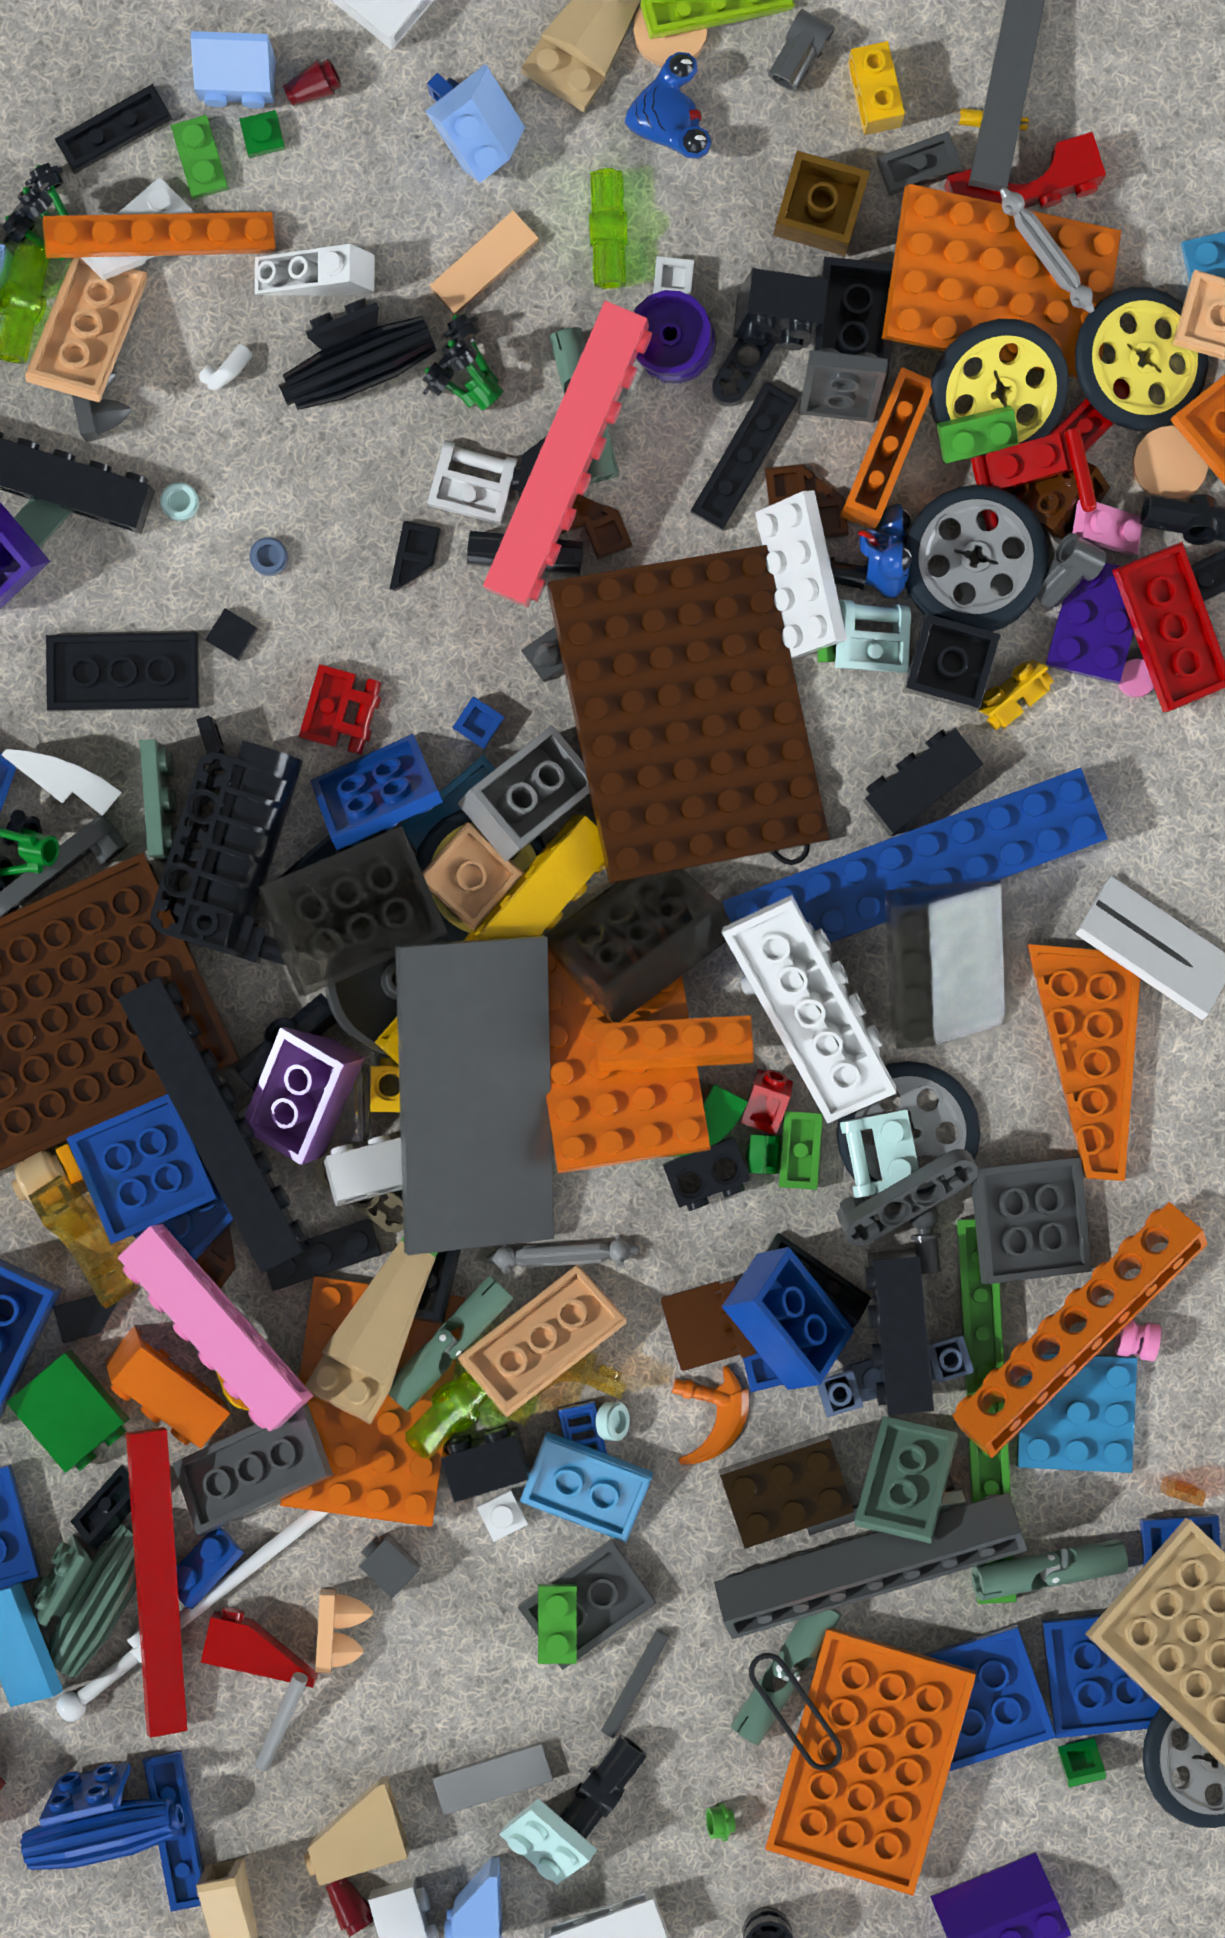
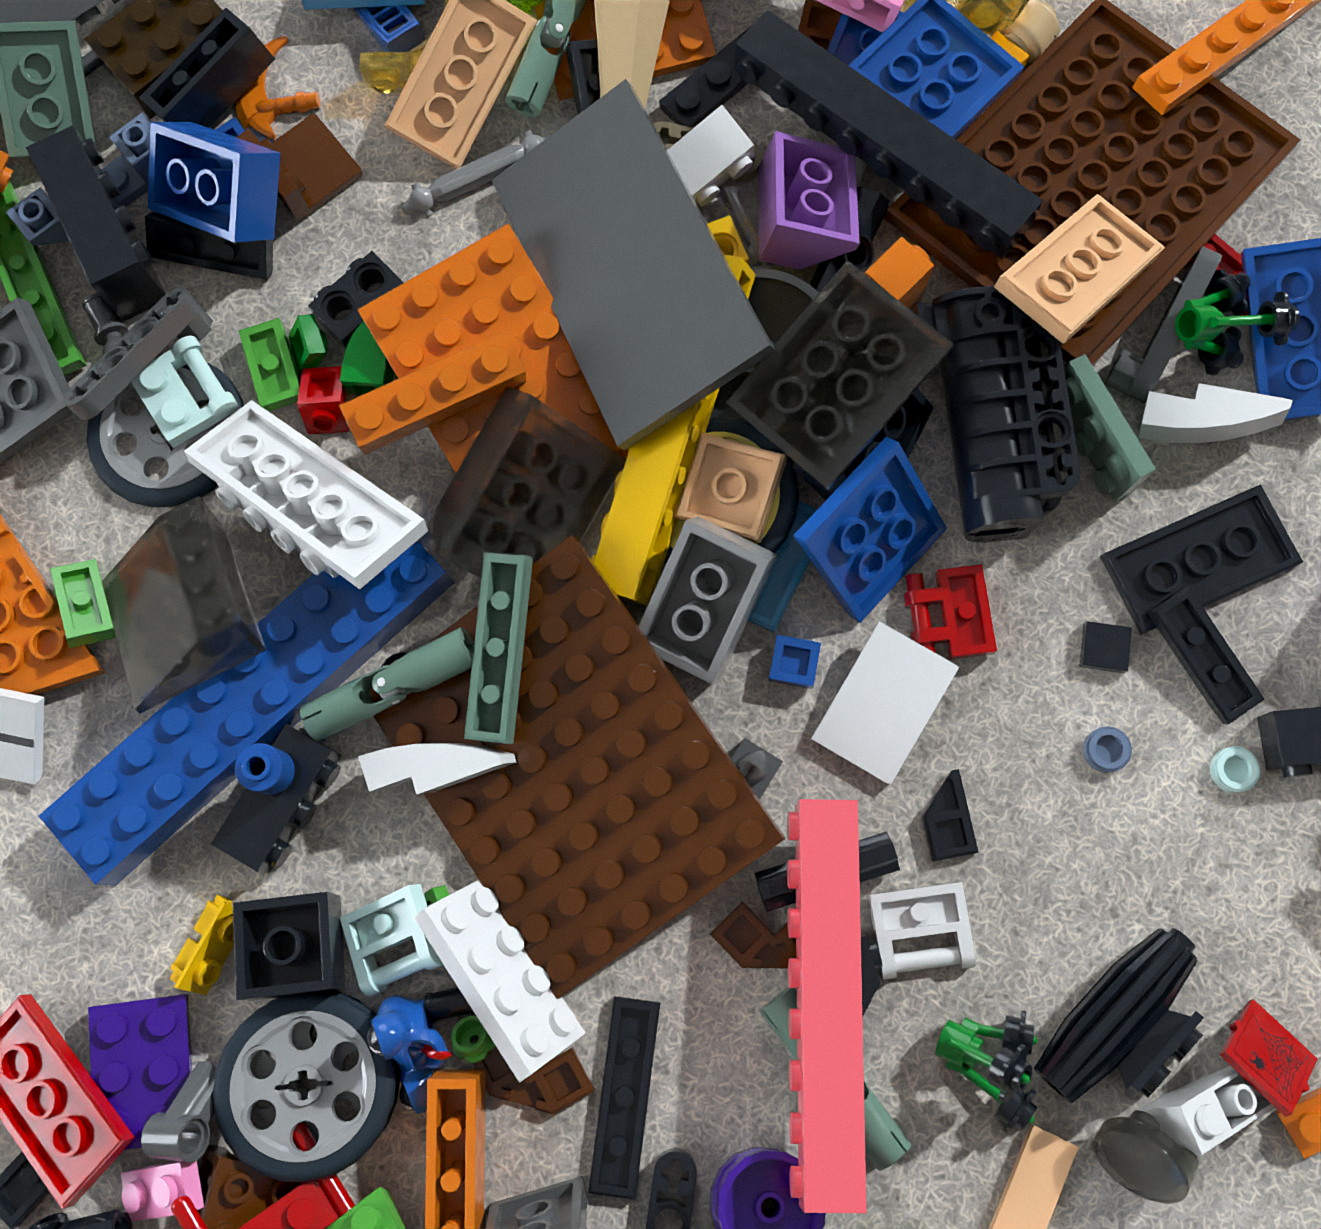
camera: 165 degrees right, 10 degrees down
(114, 930) = (1079, 268): none -> light nougat tile
(159, 595) = (1205, 655): none -> black tile
(210, 735) = (1074, 525): black tile -> none
(229, 369) = (1258, 943): white arm -> none
(262, 289) = (1269, 1057): none -> red piece
(262, 990) = (903, 272): none -> orange brick
(388, 258) = (1145, 1158): none -> clear smoke tile
(423, 661) = (885, 703): none -> white tile
(612, 1421) = (362, 36): light aqua tile -> none
(703, 814) = (498, 648): none -> sand green brick
(760, 1432) = (209, 73): none -> black brick
(773, 827) = (411, 673): none -> sand green piece
(790, 751) = (430, 765): none -> white slope
(846, 546) = (462, 1036): none -> bright green plate
(913, 807) = (277, 773): none -> blue brick
(1023, 1004) = (82, 603): none -> plate
(1135, 679) = (73, 1022): bright pink tile -> none

